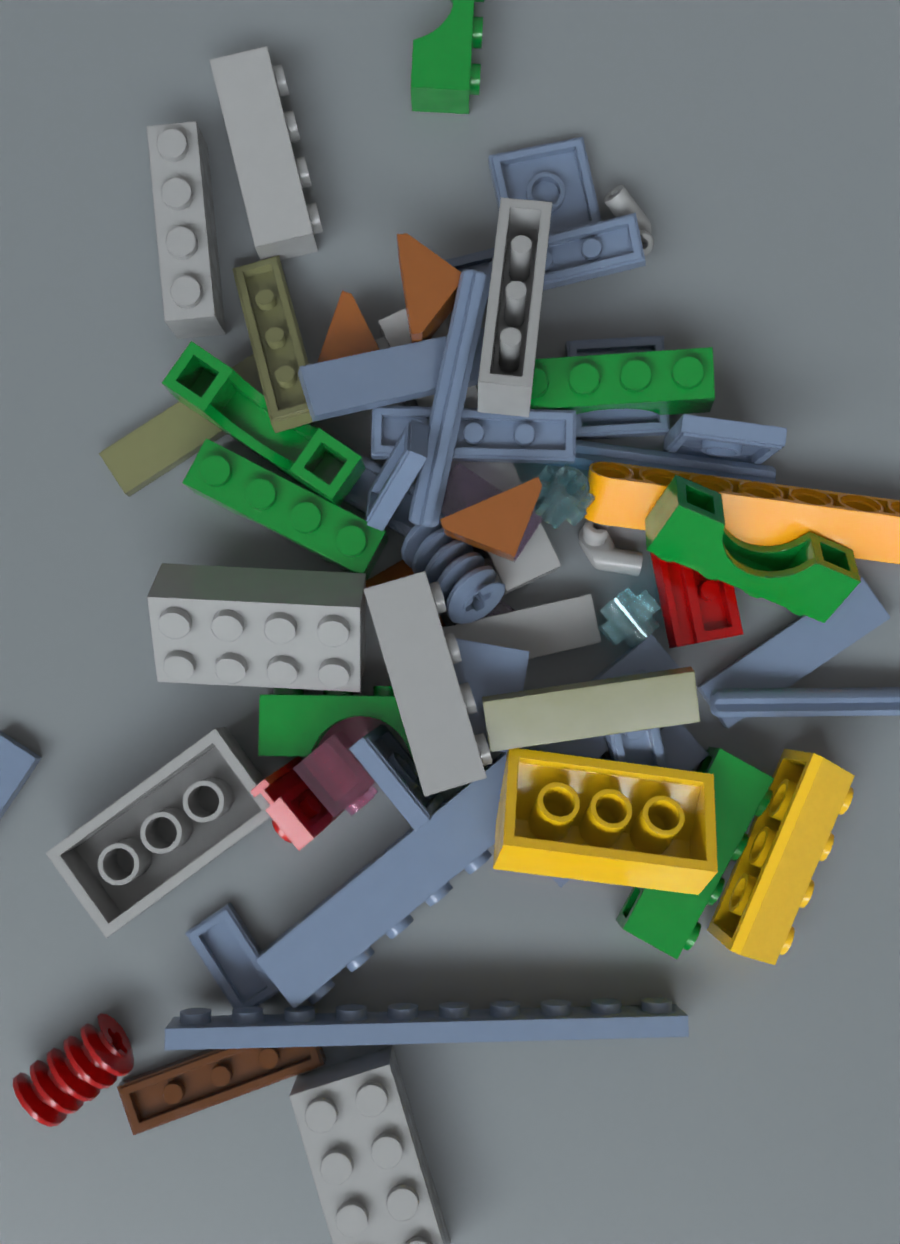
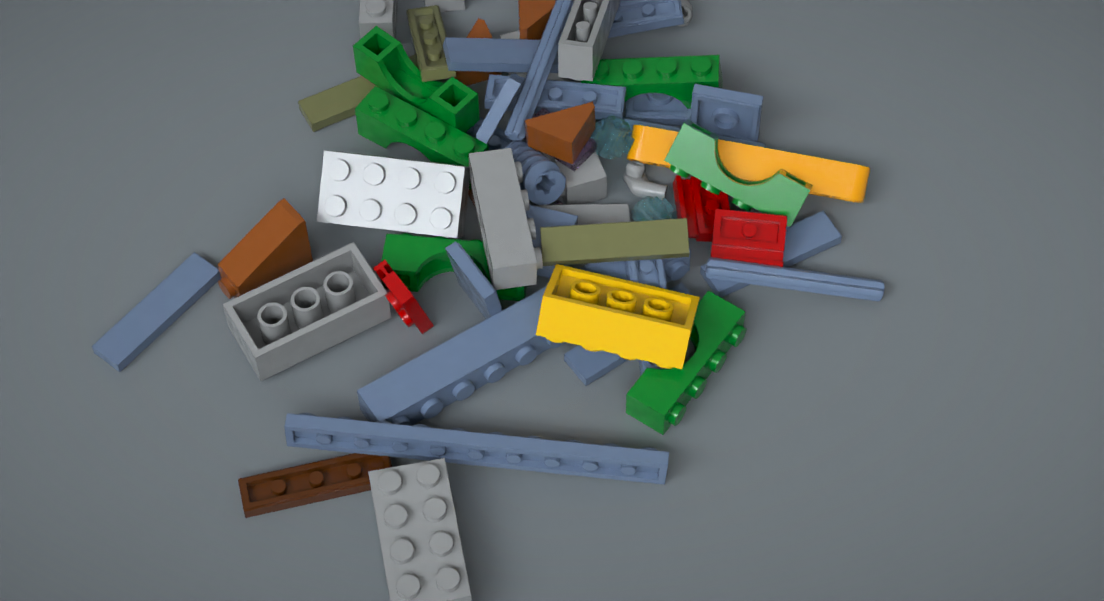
camera: 10 degrees right, 30 degrees down
(77, 1075) = (210, 458): red piece -> none
(93, 742) = (266, 252): none -> dark orange slope
(231, 956) = (334, 398): sand blue tile -> none
(337, 776) = (435, 281): clear pink brick -> none
(768, 651) = (749, 237): none -> red plate
(781, 856) = (749, 363): yellow slope -> none

